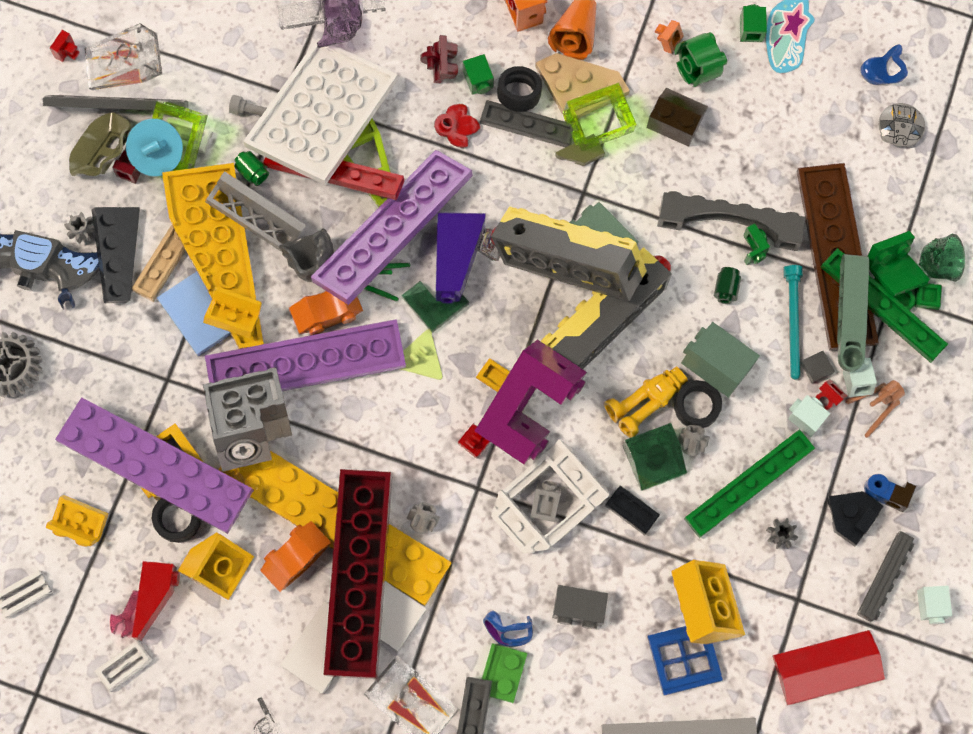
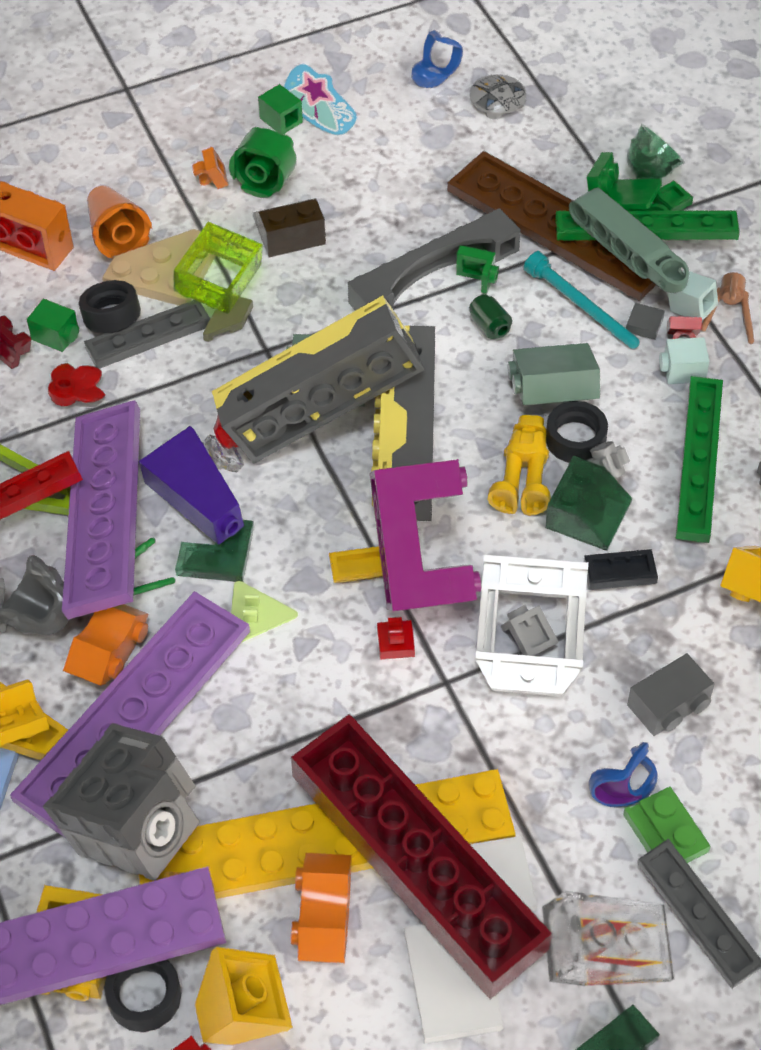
camera: 40 degrees left, 20 degrees down
(423, 517) = (423, 749): light grey gear -> none

